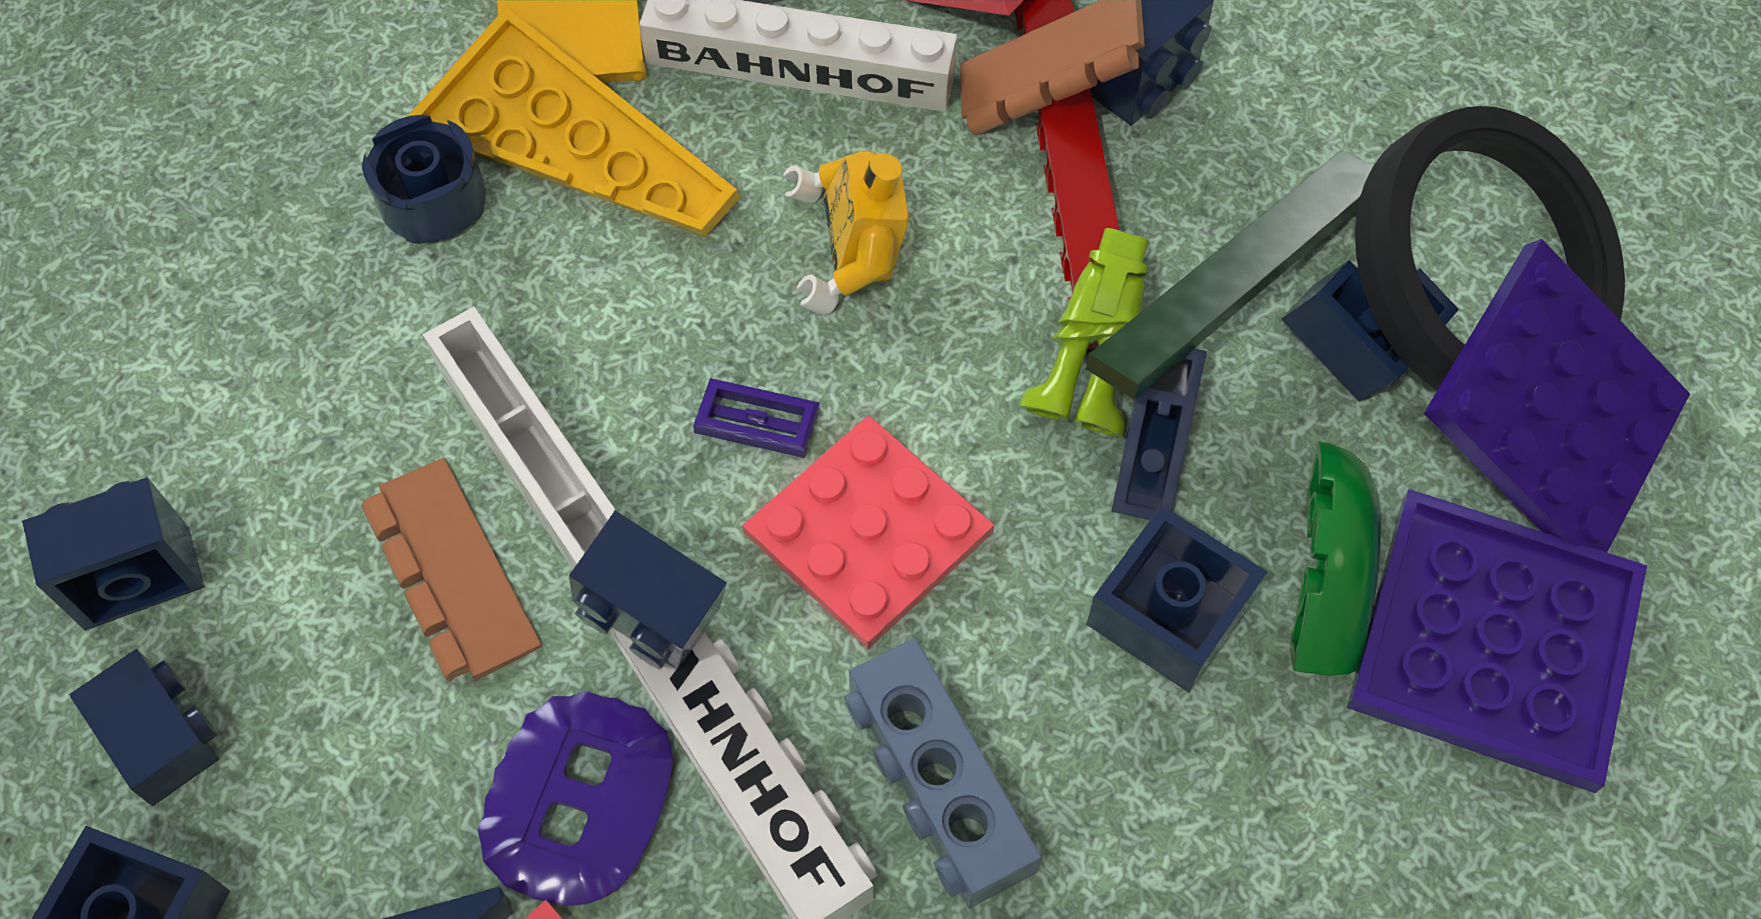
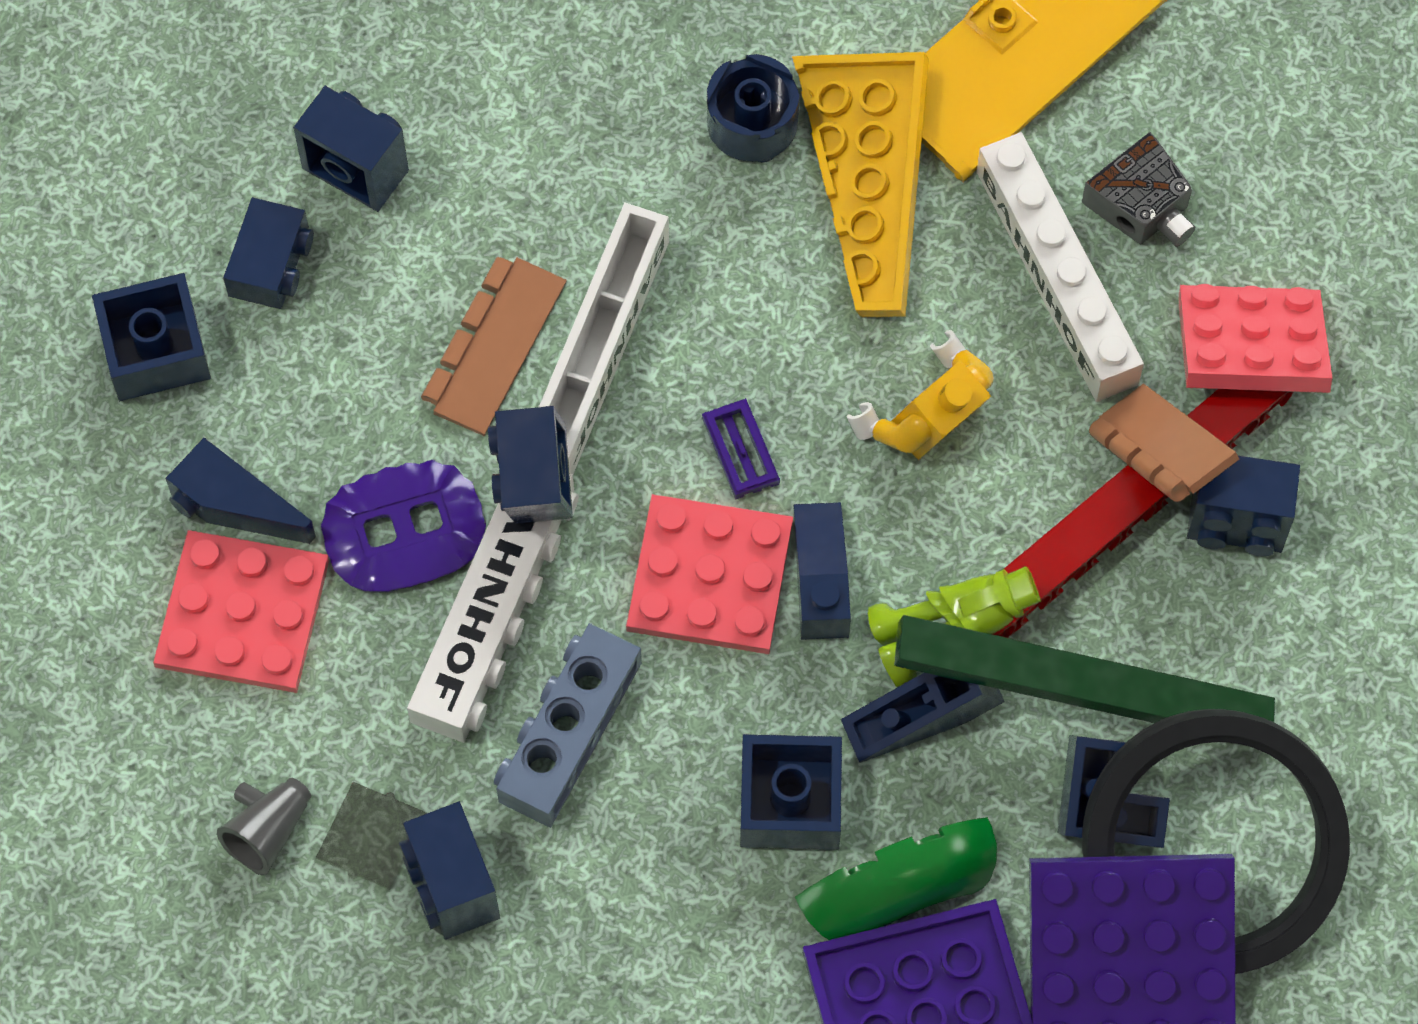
camera: 55 degrees right, 5 degrees up
(950, 425) = (822, 571): none -> dark blue slope

